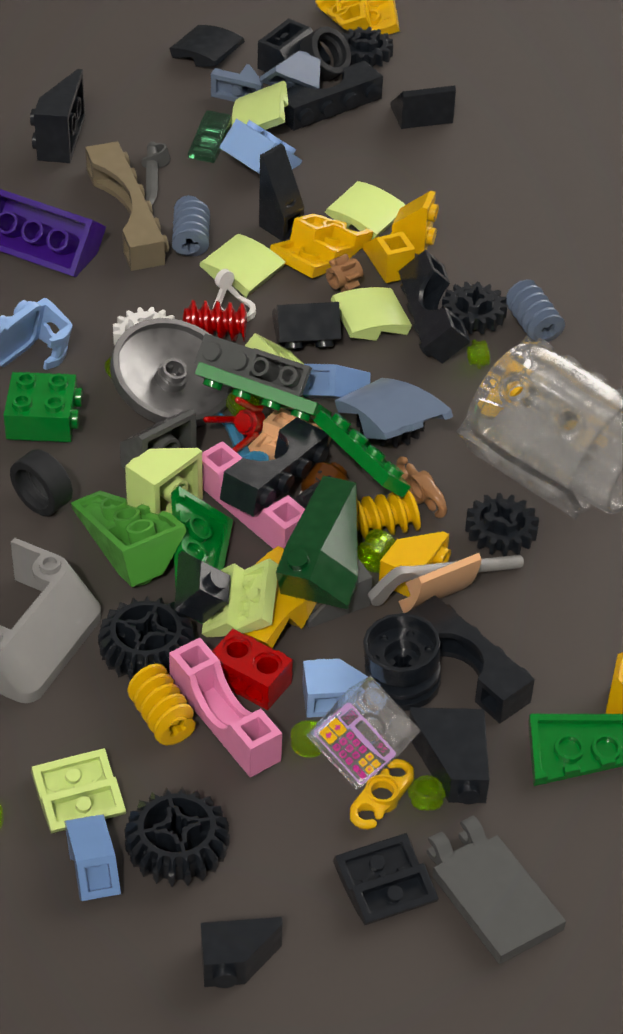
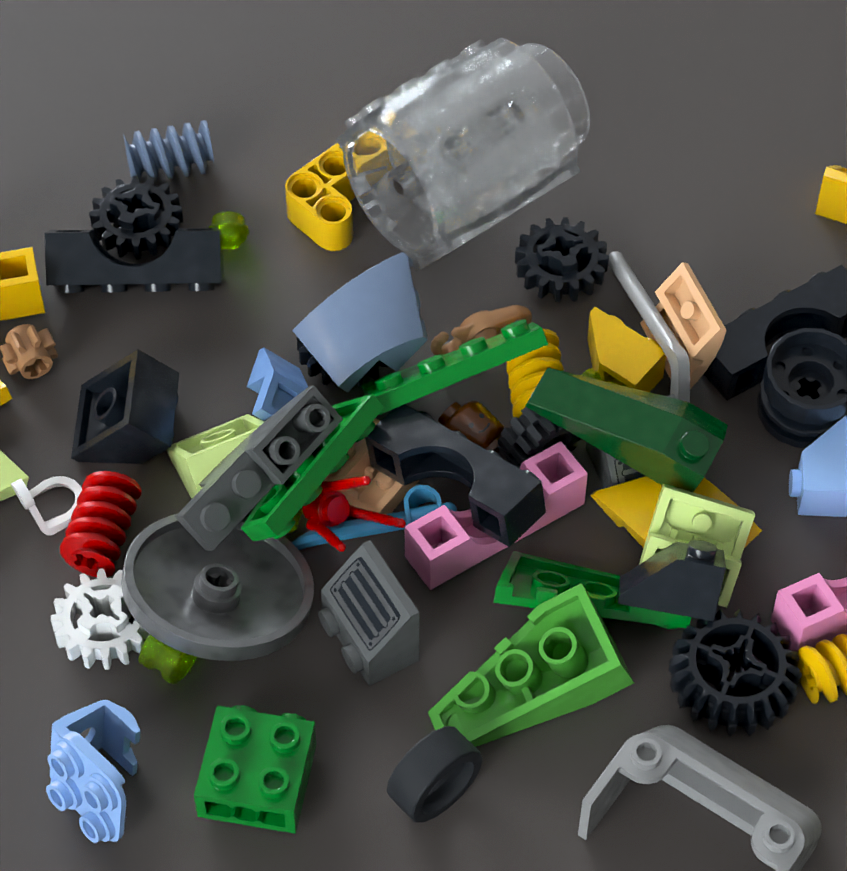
camera: 80 degrees left, 10 degrees up
(159, 472) = (471, 614): yellowish green slope -> none
(254, 668) = (790, 556): red brick -> none
(370, 311) = (109, 331): yellowish green slope -> none

